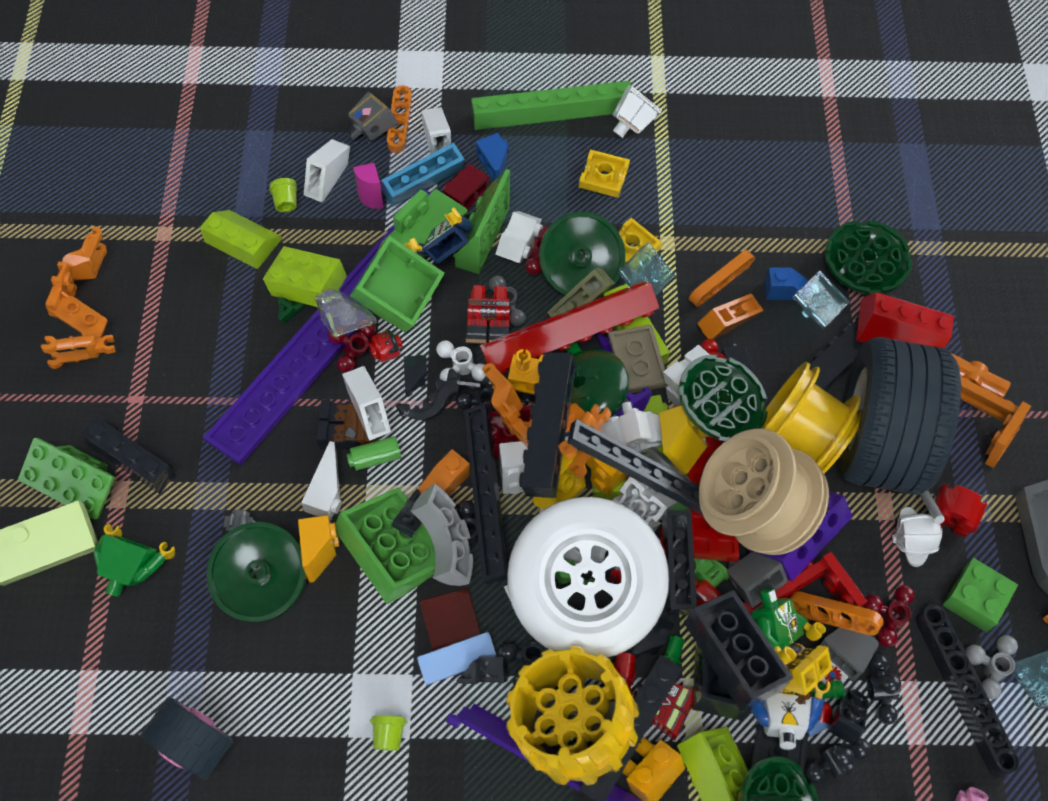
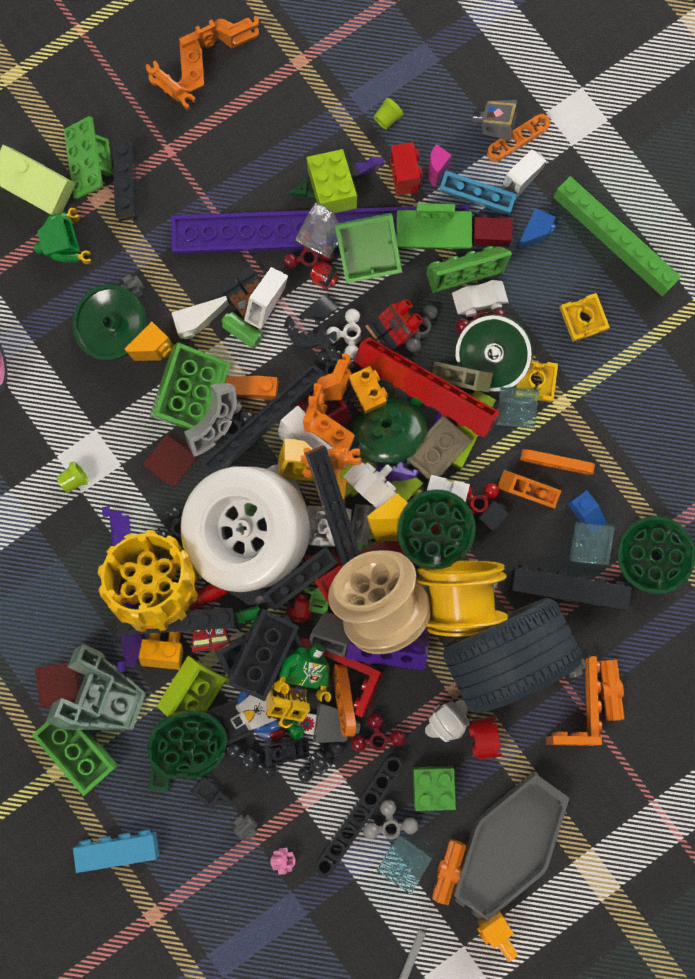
camera: 55 degrees right, 20 degrees up
(239, 237) = (334, 112): lime slope -> none
(318, 239) = (370, 166): none -> dark purple slope
(324, 169) = (431, 123): white slope -> none
(348, 212) = (405, 168): none -> red brick
(406, 521) = (204, 385): black slope -> none
(444, 238) = (426, 252): dark blue torso -> none
(454, 658) = (147, 484): light blue slope -> none
(485, 669) = (153, 507): black slope -> none
(548, 425) = (320, 429): black brick -> none
(634, 112) = (654, 300): white torso -> none
(902, 321) = (606, 617): red slope -> none
(932, 507) = (468, 722): light grey bar -> none

